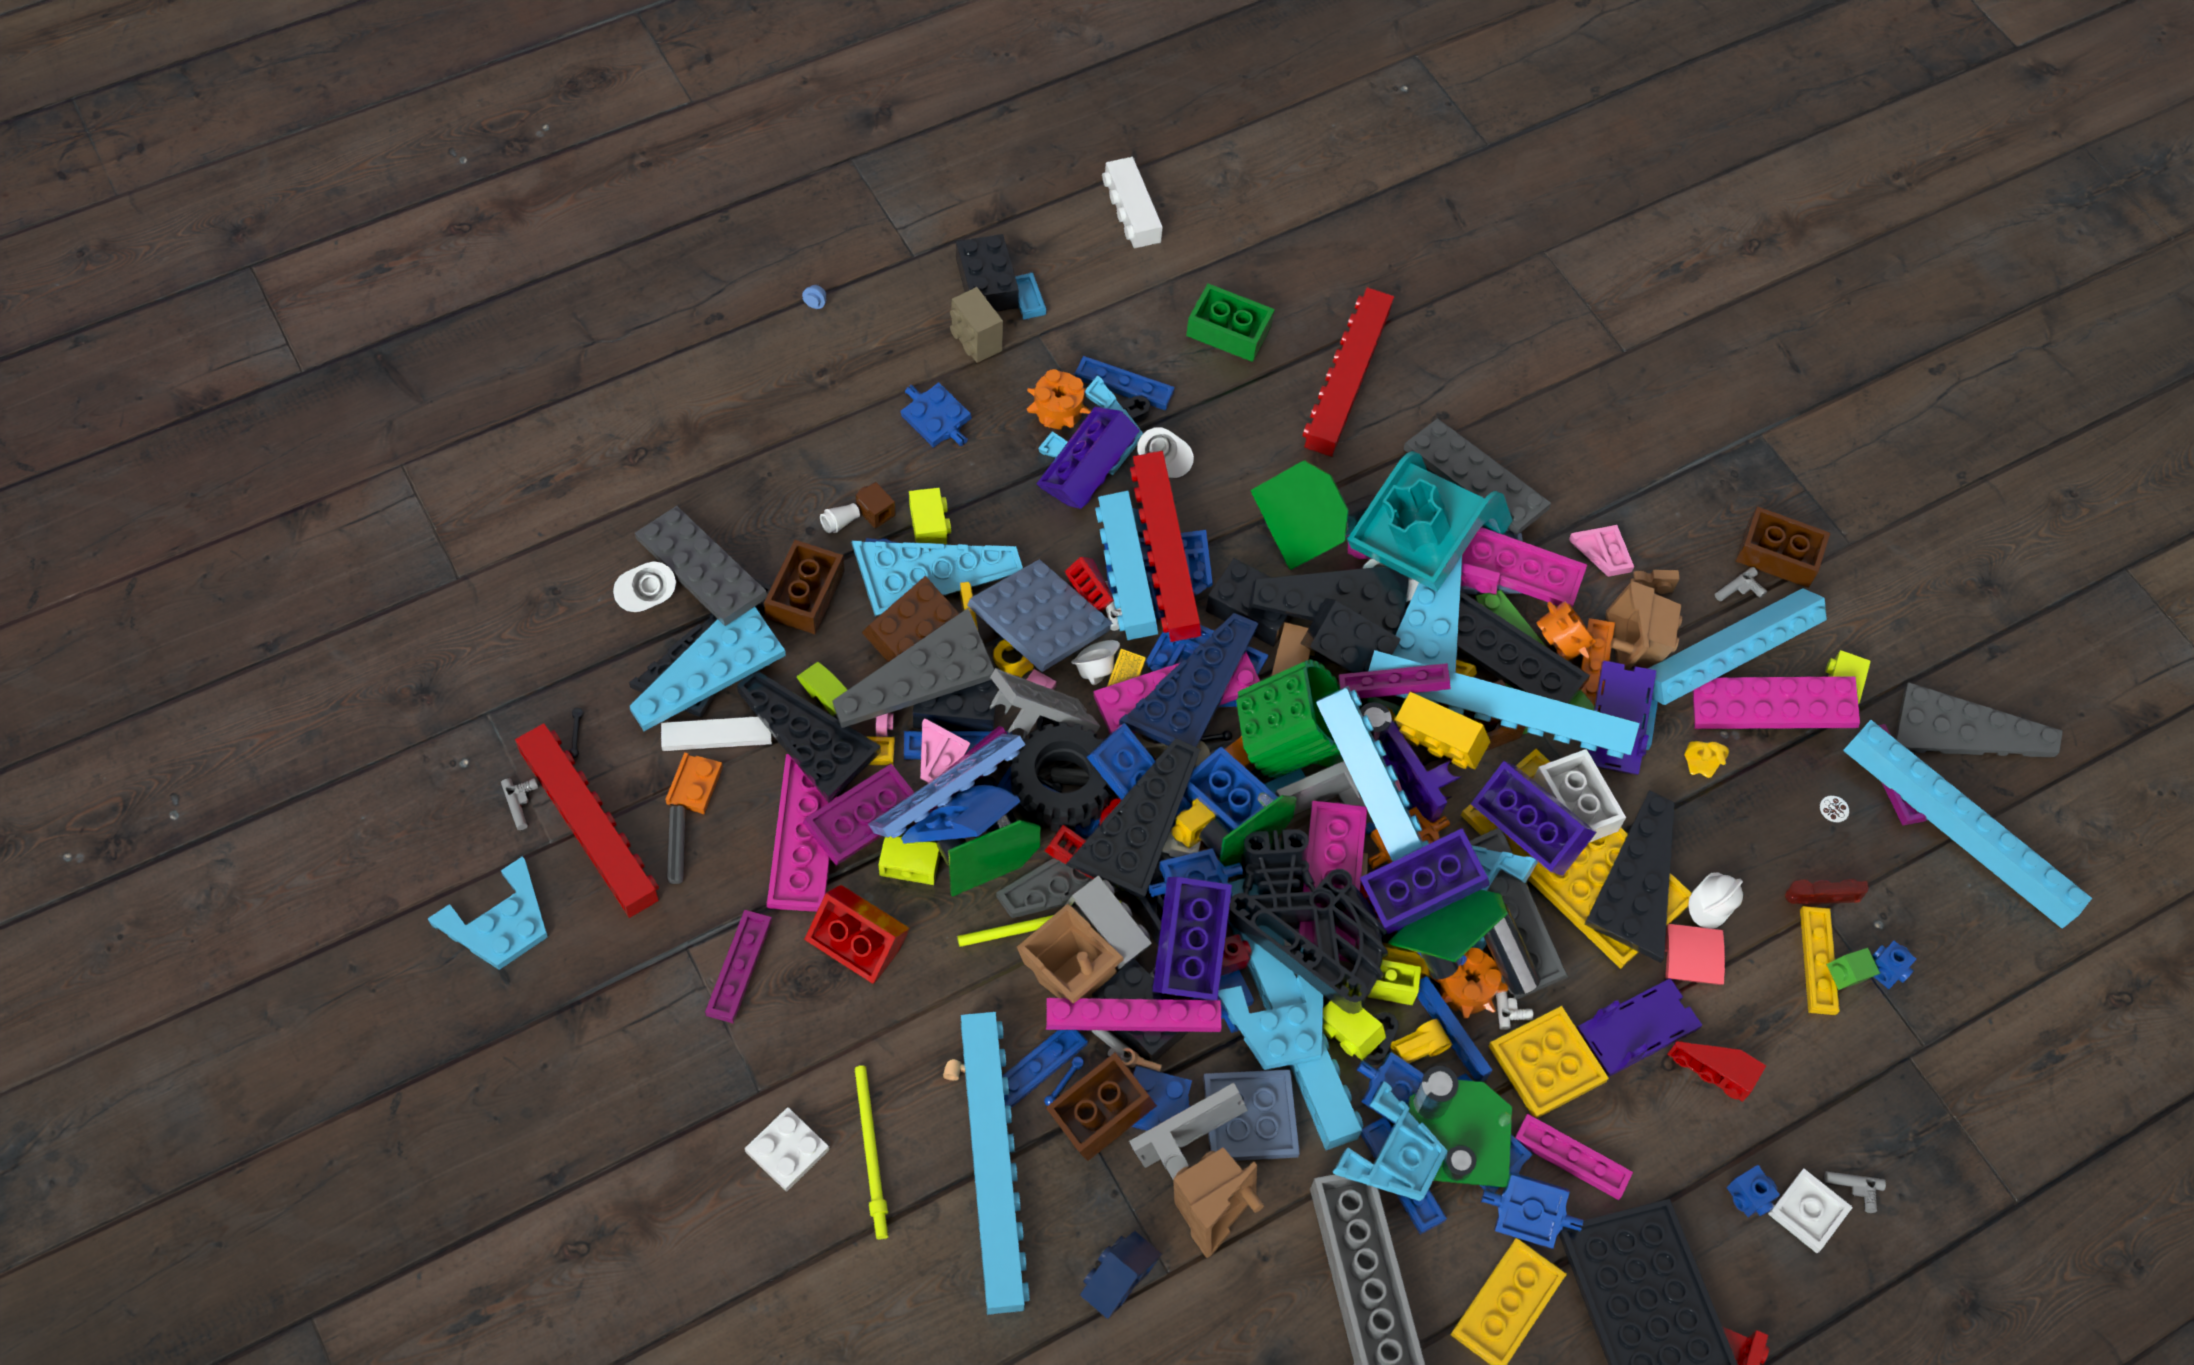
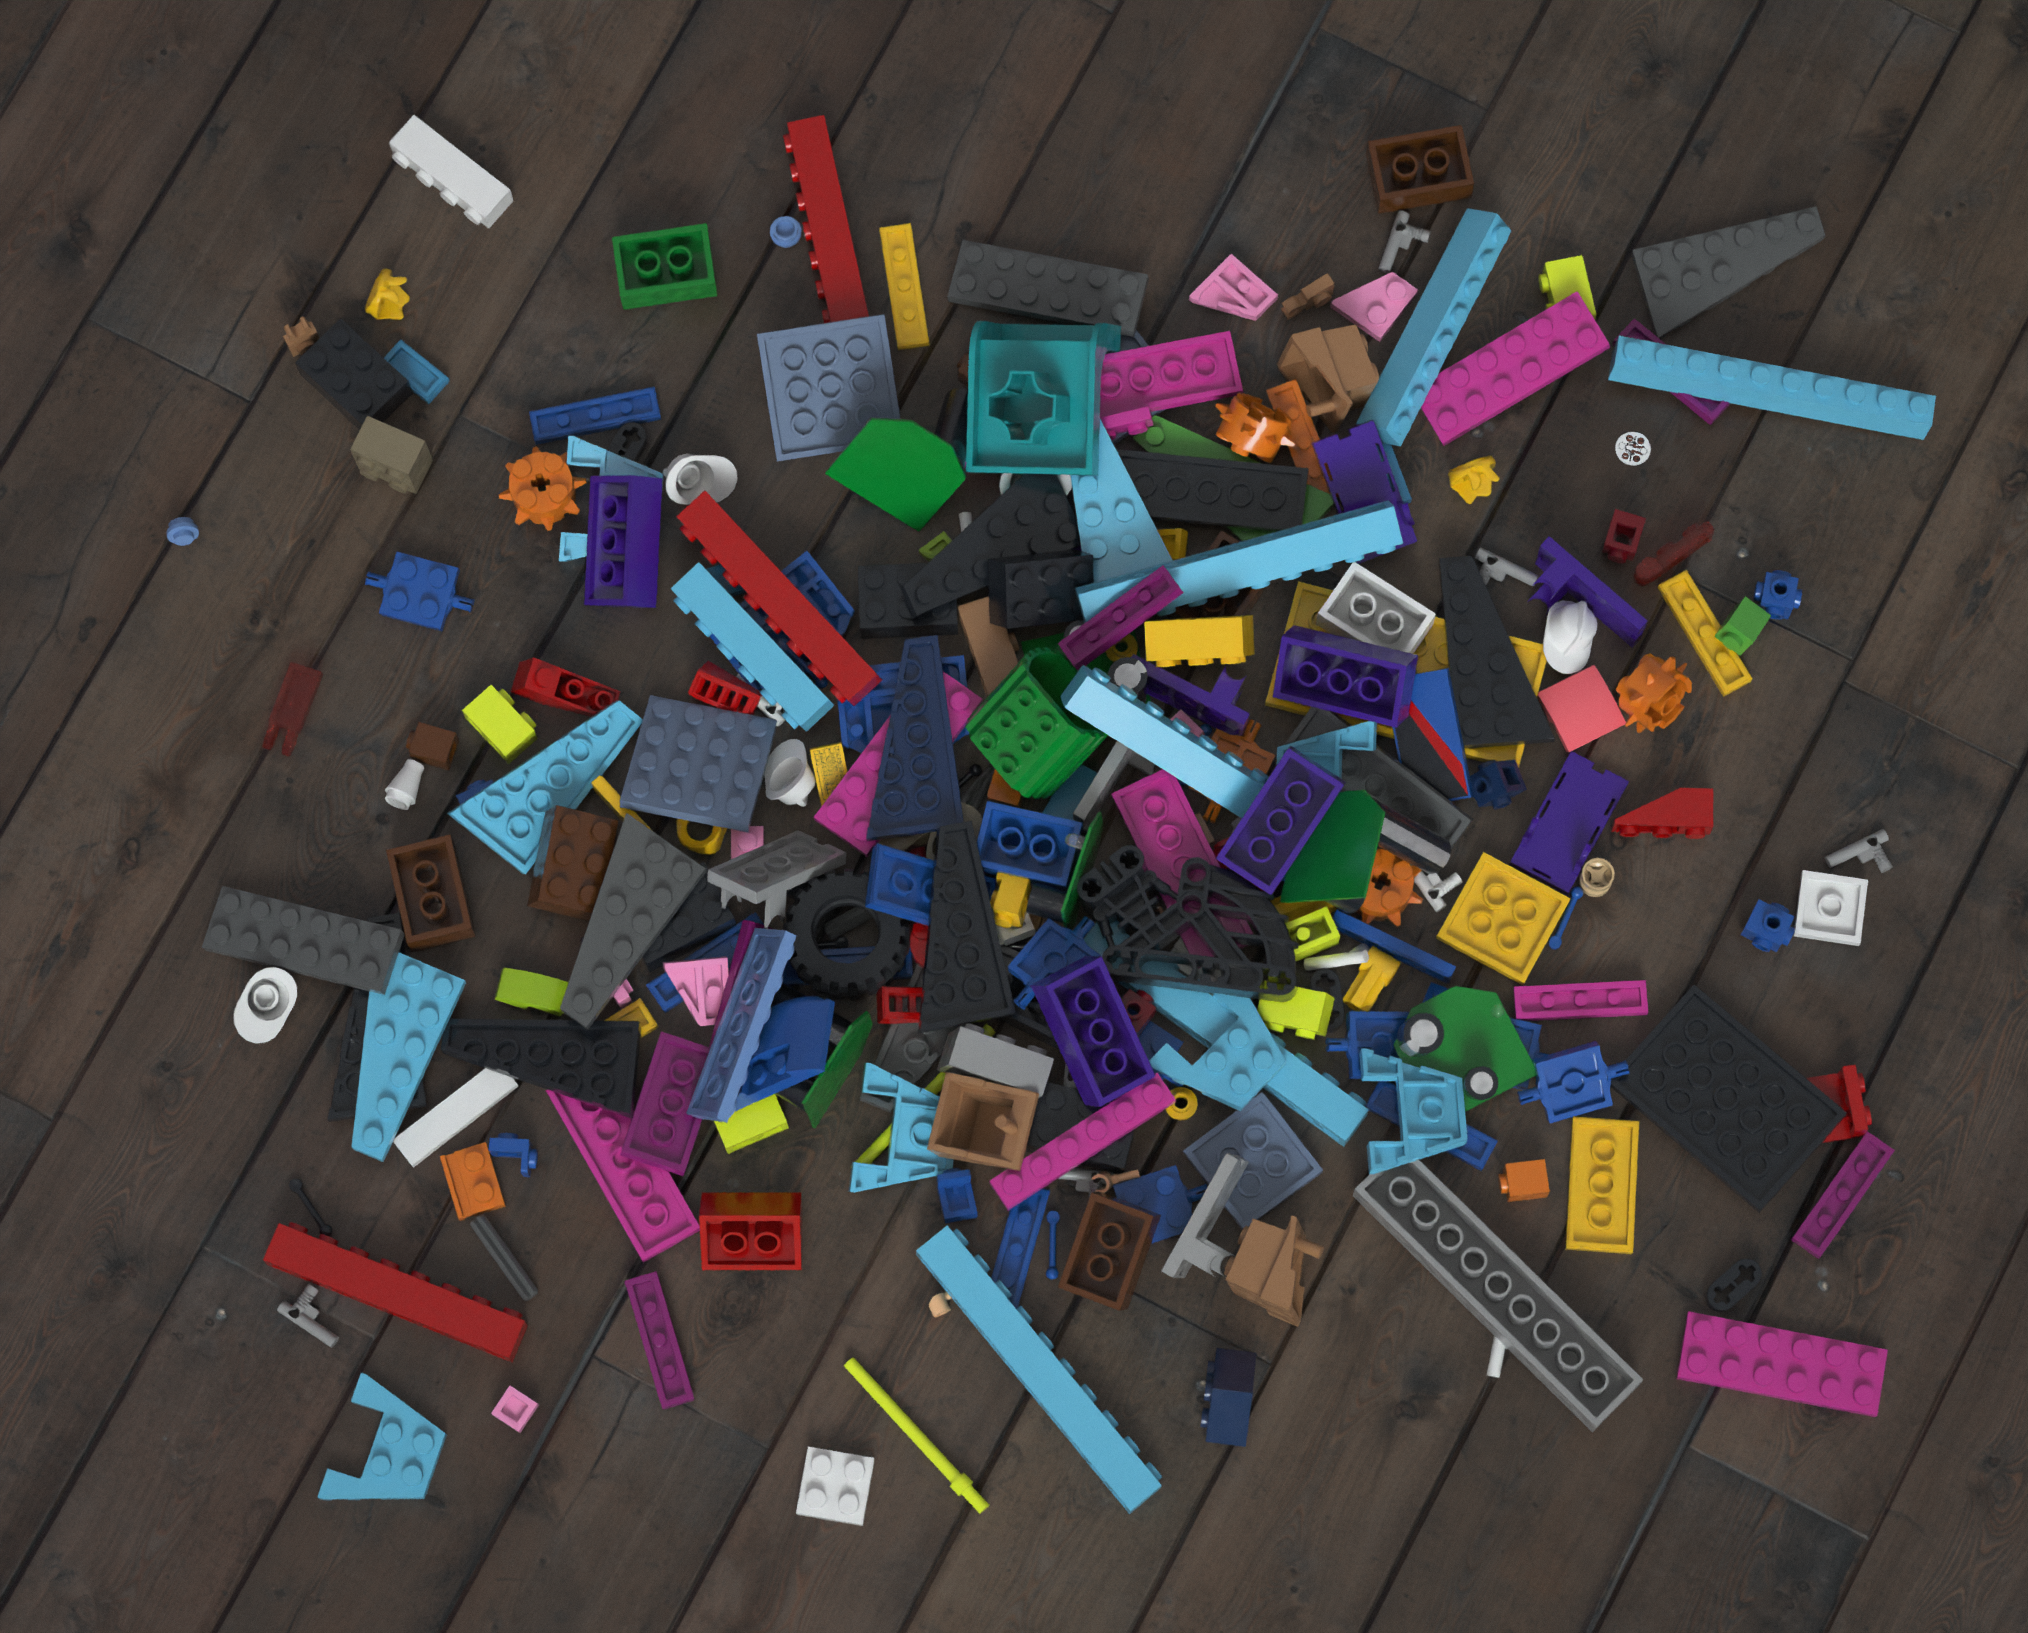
camera: 25 degrees left, 15 degrees up
(605, 947) = (514, 1409): none -> bright pink plate
(736, 776) = (510, 1146): none -> blue bracket
(803, 431) = (292, 706): none -> clear red hinge
(970, 229) = (300, 337): none -> medium nougat plate
(983, 519) = (561, 688): none -> red slope
(1001, 952) = (909, 1135): none -> medium azure wing
(1018, 1000) = (956, 1195): none -> blue bracket
(1040, 244) = (387, 297): none -> yellow piece
(1221, 1049) = (1189, 1110): none -> yellow plate
(1284, 432) = (826, 383): none -> sand blue plate
(1323, 350) = (785, 231): none -> medium blue plate
(1379, 424) = (904, 286): none -> yellow tile
(1404, 1012) = (1355, 956): none -> white hose
(1449, 1260) = (1524, 1180): none -> orange brick
(1571, 901) = (1431, 736): none -> tile
(1578, 1104) = (1555, 941): none -> blue hinge
(1600, 964) = (1497, 783): none -> dark blue brick
(1640, 1070) = (1601, 872): none -> tan wheel
(1691, 828) = (1501, 568): none -> light grey hose
(1702, 614) = (1376, 304): none -> bright pink wing
(1743, 862) = (1567, 575): none -> dark purple piece
(1758, 972) = (1653, 692): none -> orange brick
(1795, 857) = (1625, 526): none -> dark red brick

